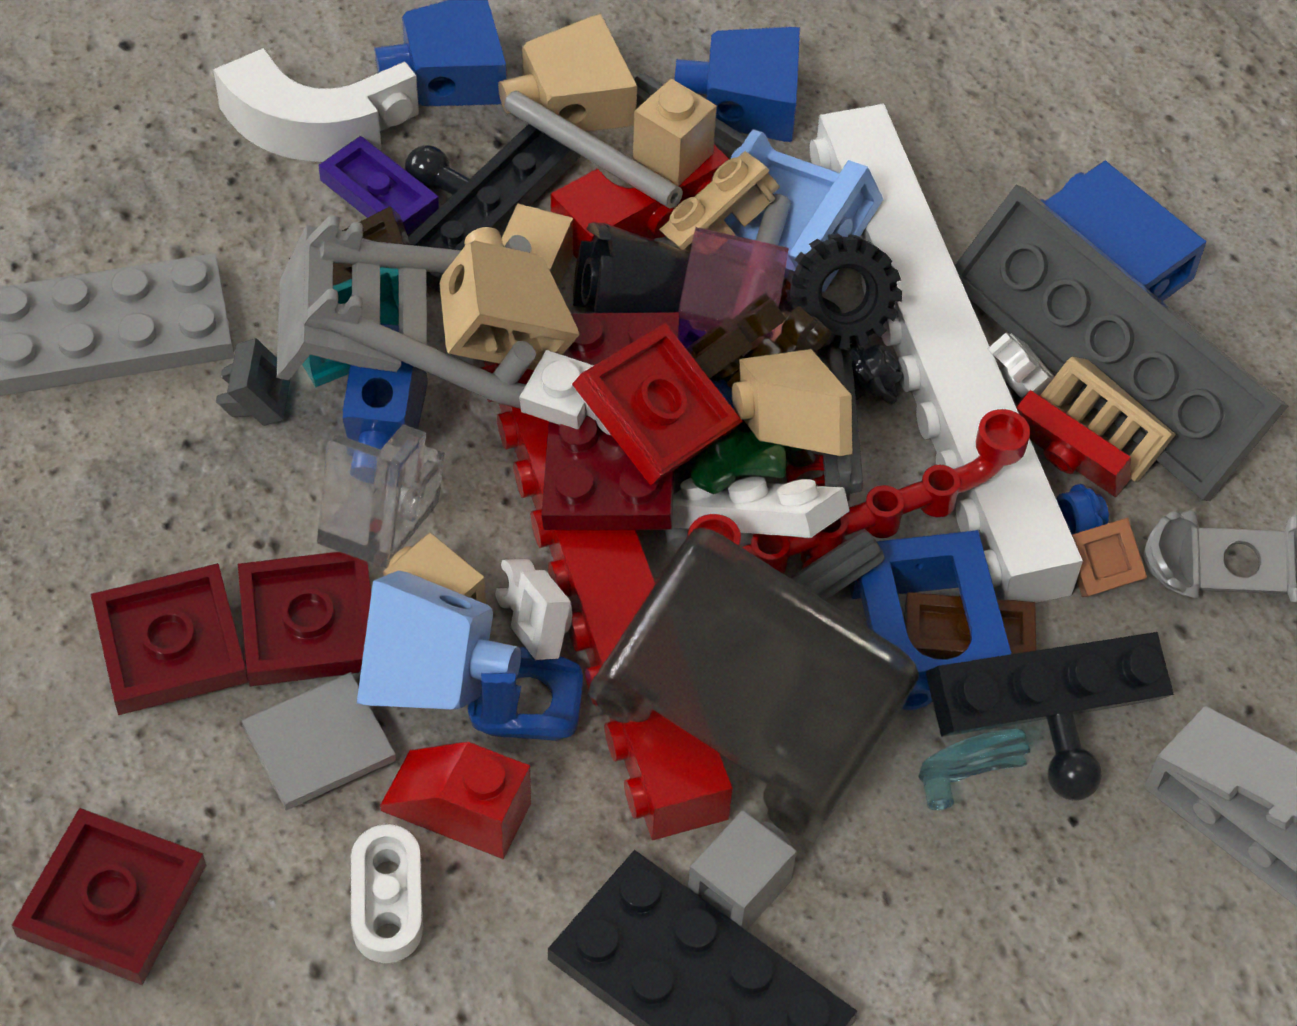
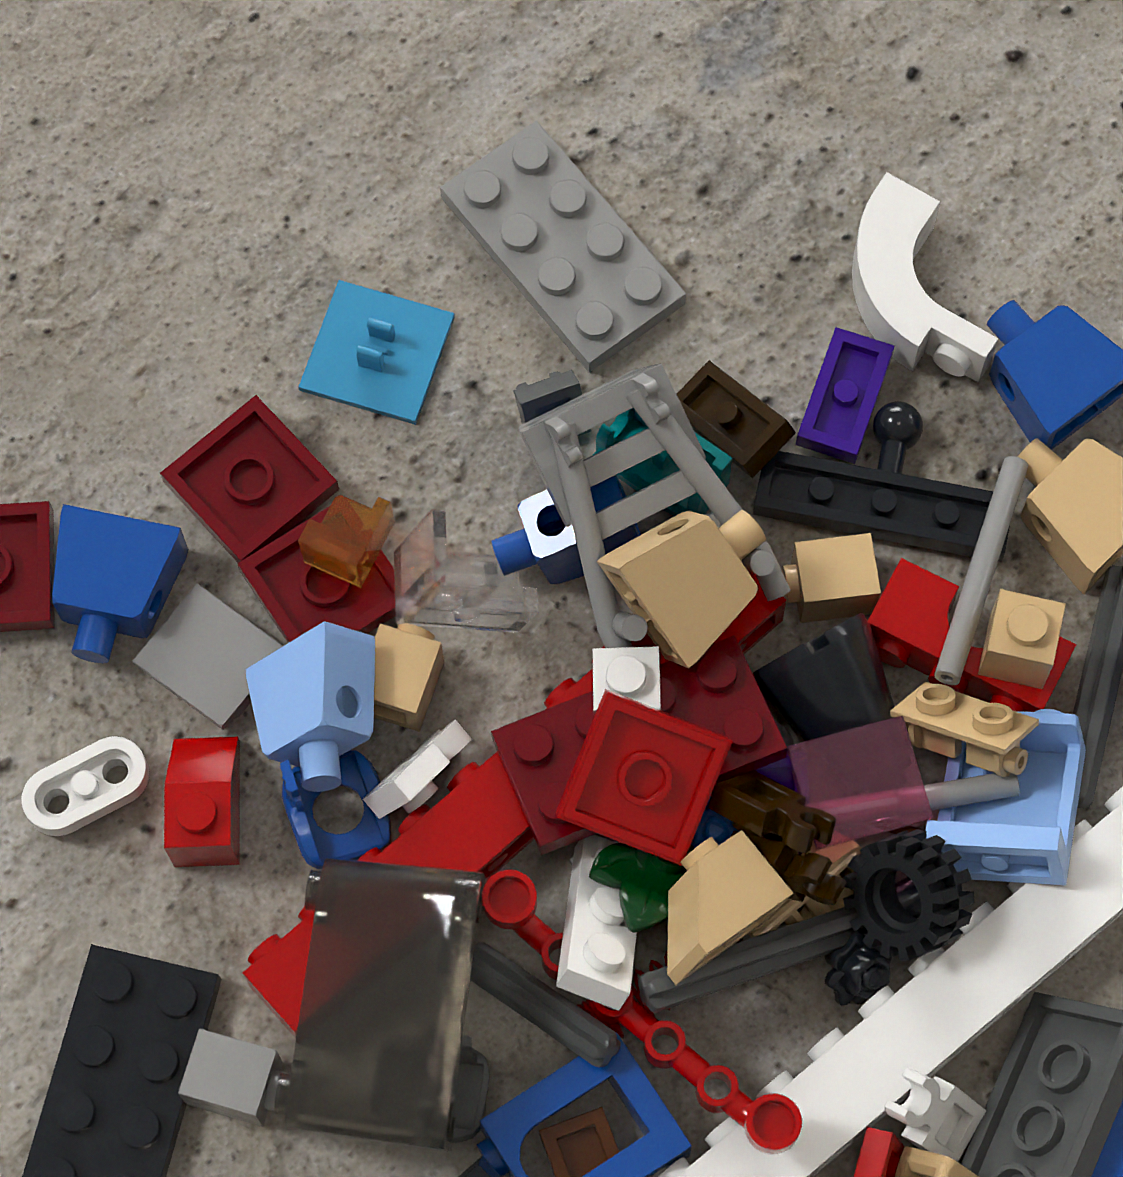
camera: 70 degrees right, 15 degrees up
(106, 501) = (377, 352): none -> dark azure piece
(189, 784) = (113, 576): none -> blue torso
(289, 565) = (347, 538): none -> clear orange panel

